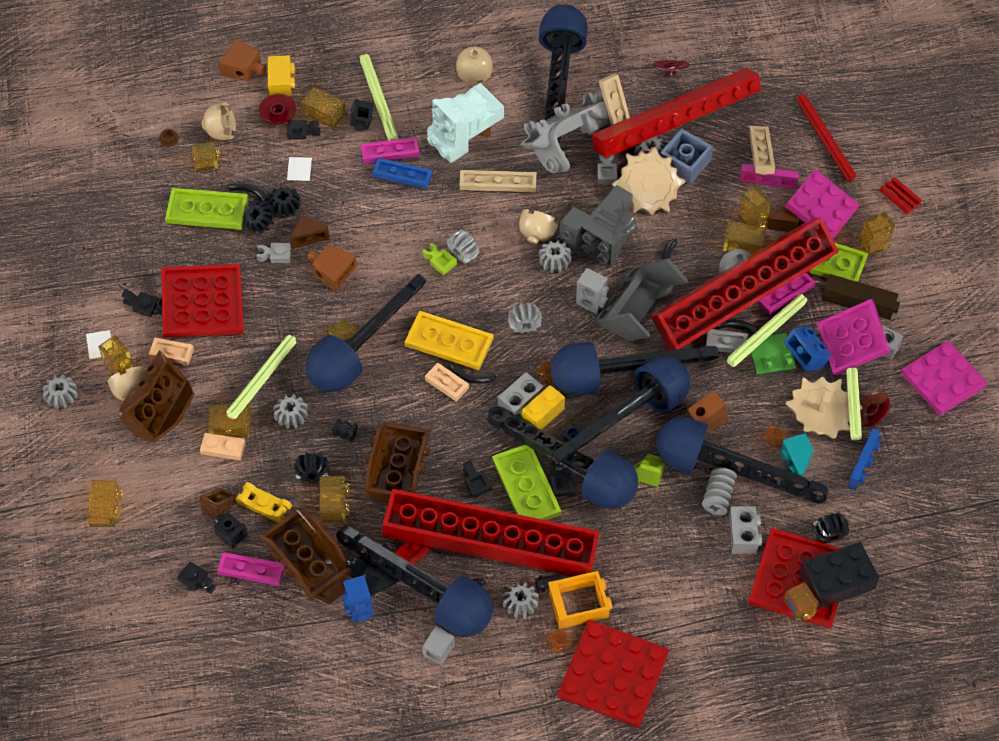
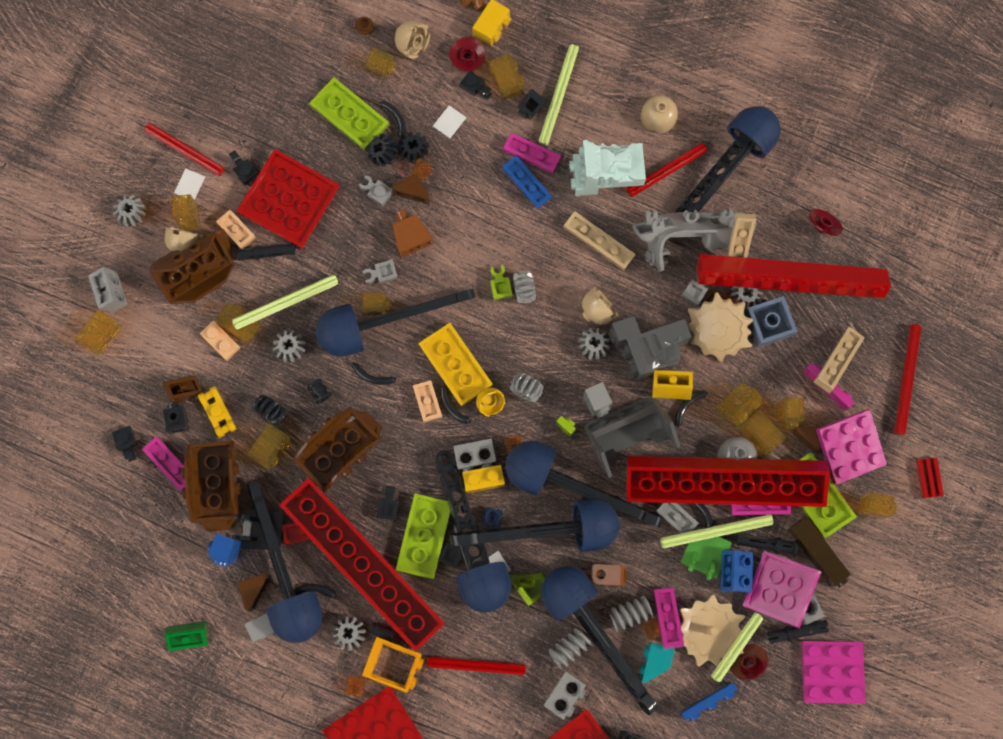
camera: 35 degrees right, 20 degrees up
(74, 318) = (184, 149): none -> red axle
(88, 462) = (107, 290): none -> light grey brick
(205, 357) = (266, 251): none -> black pin
(304, 210) = (426, 169): none -> clear orange plate
(330, 307) = (384, 272): none -> light grey plate
(374, 699) = (186, 636): none -> green slope
(384, 395) = (372, 379): none -> black piece
(405, 620) = (252, 589): none -> reddish brown slope
(502, 348) = (490, 401): none -> yellow hair
(513, 100) = (668, 168): none -> red axle
(580, 329) = (566, 425): none -> lime plate
(644, 245) = (672, 384): none -> yellow brick
(651, 557) = (476, 665): none -> red axle
(710, 228) = (740, 405): none -> clear yellow brick
(748, 432) = (630, 613): none -> light grey piece
(781, 416) = (668, 618): none -> dark pink plate
(823, 312) = (776, 545): none -> black pin
(887, 369) = (790, 633): none -> black pin

